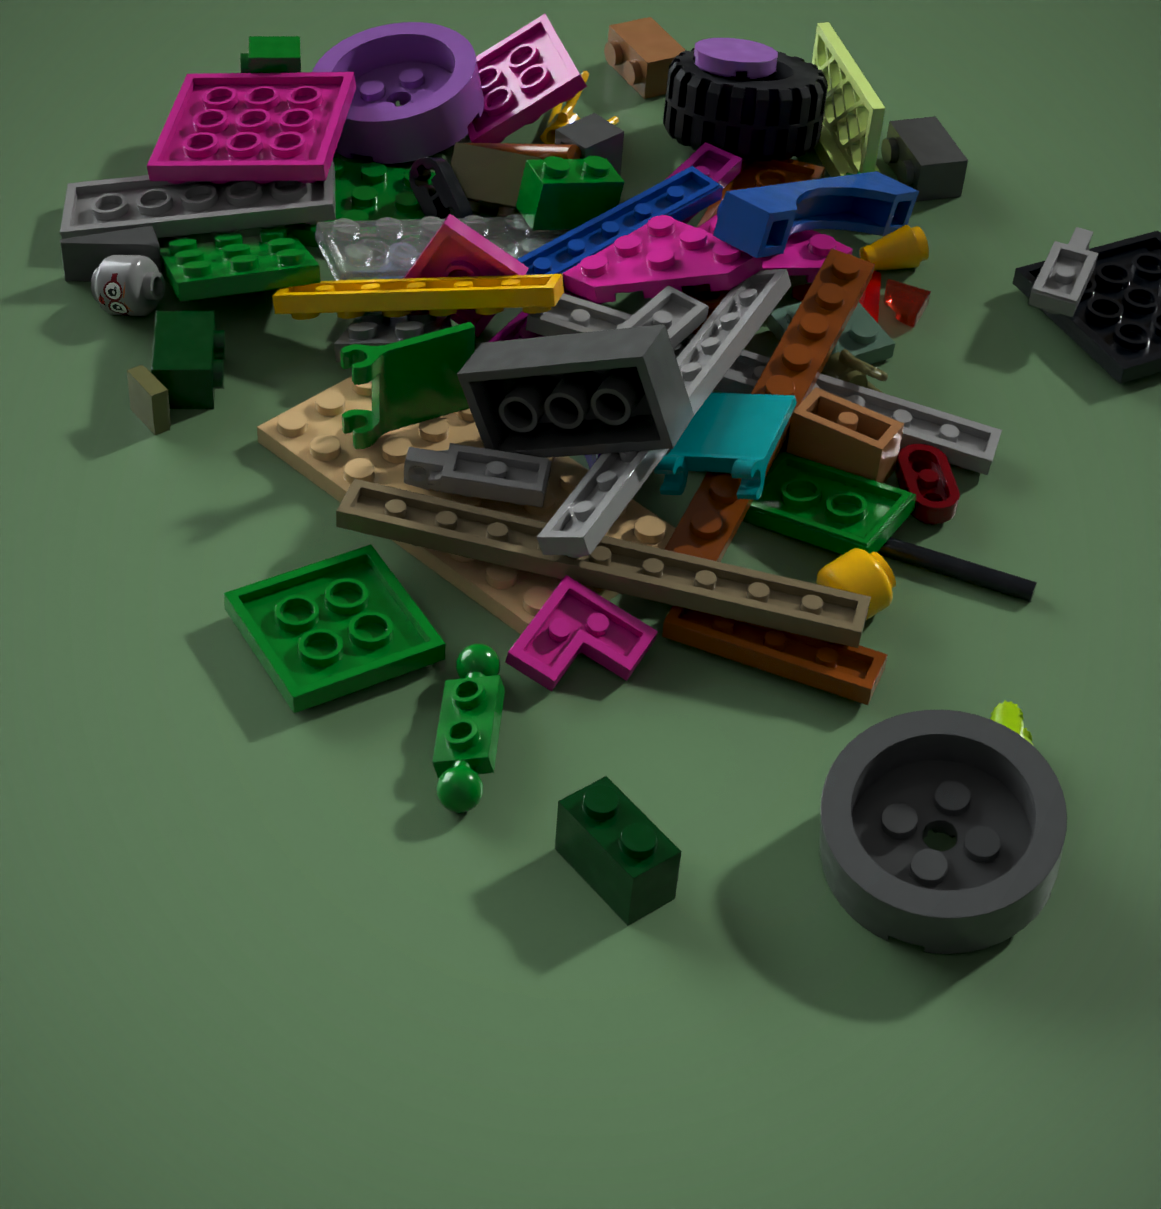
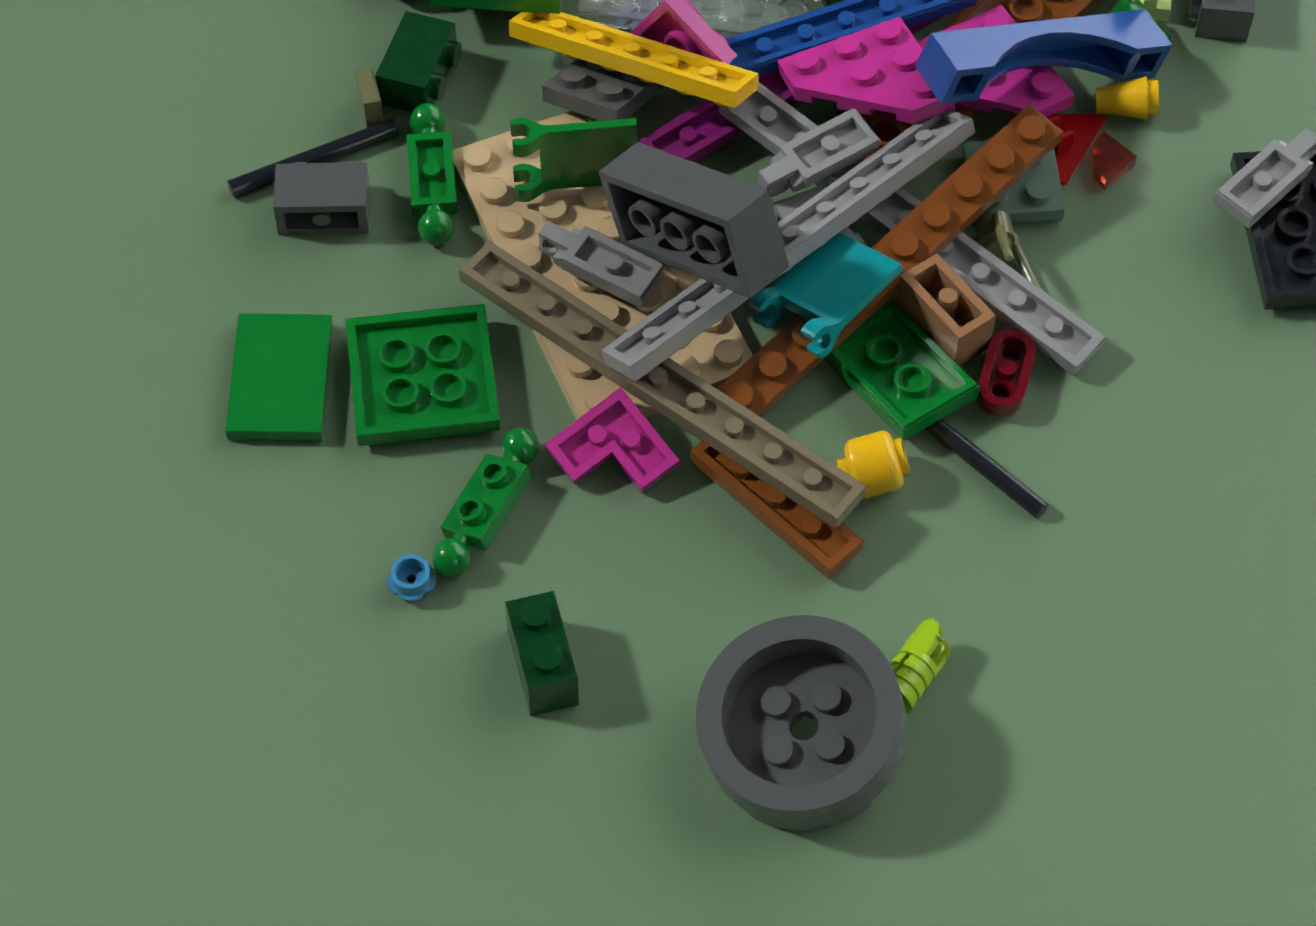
camera: 25 degrees right, 15 degrees up
(105, 467) = (319, 154): none -> black bar
(140, 494) = (322, 198): none -> dark grey brick
(170, 672) = (279, 377): none -> green tile
(250, 450) = (431, 174): none -> green plate
(423, 821) = (406, 567): none -> dark azure plate

